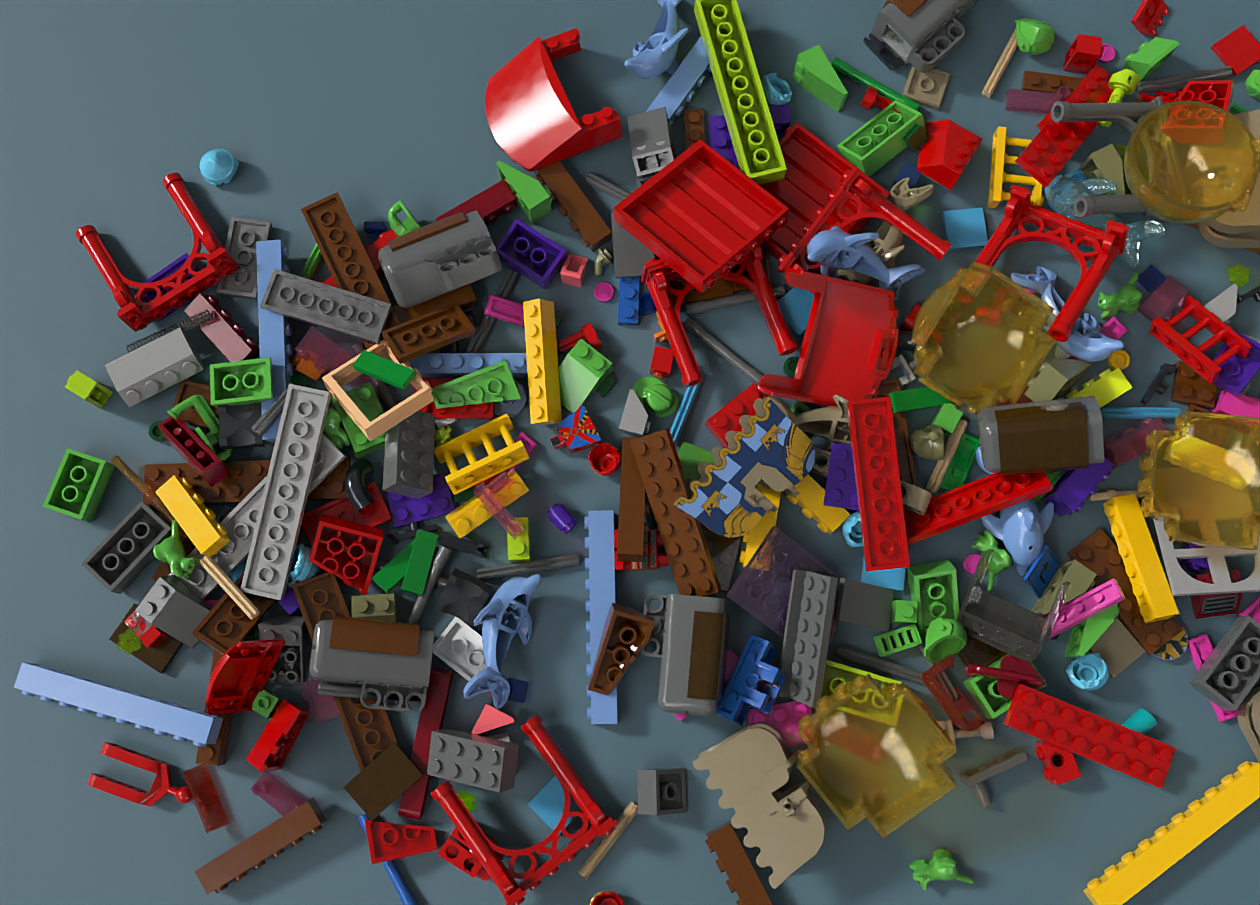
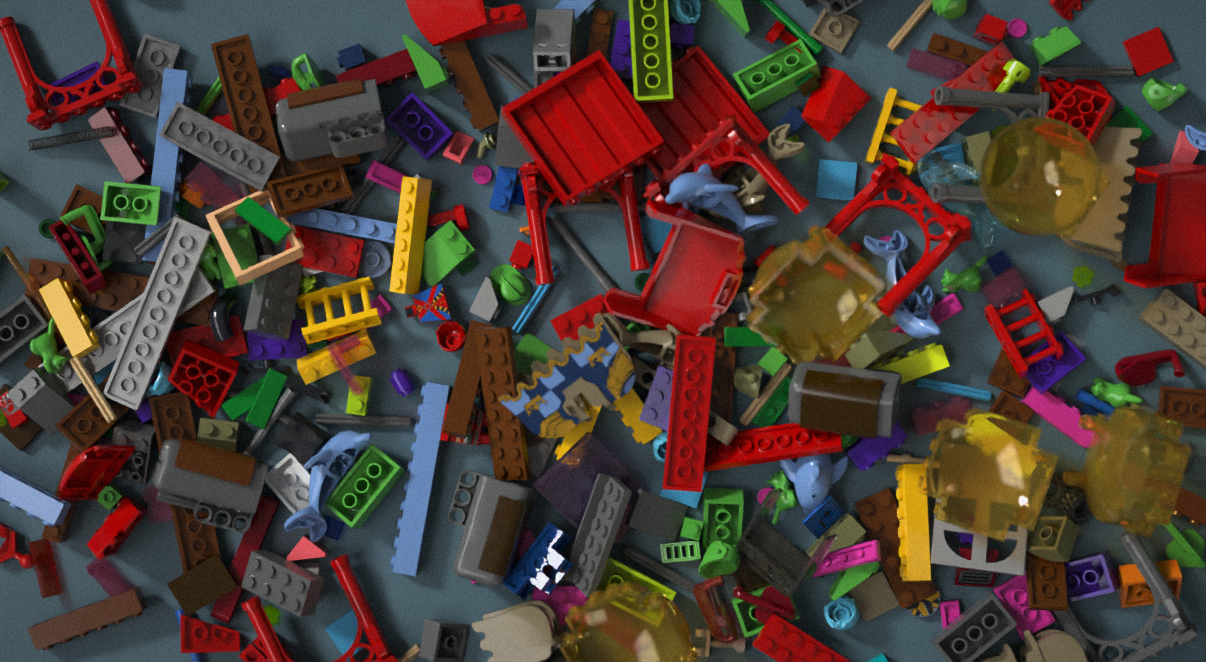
camera: 10 degrees right, 10 degrees up
(154, 367) = (53, 169): light grey slope -> none
(447, 199) = (351, 57): none -> dark blue brick
(482, 386) = (350, 248): bright green wing -> none
(543, 636) = (364, 486): none -> bright green slope
(622, 639) = (433, 504): reddish brown wedge -> none
(1119, 359) = (948, 335): yellow tile -> none
(1156, 385) = (976, 365): black piece -> none

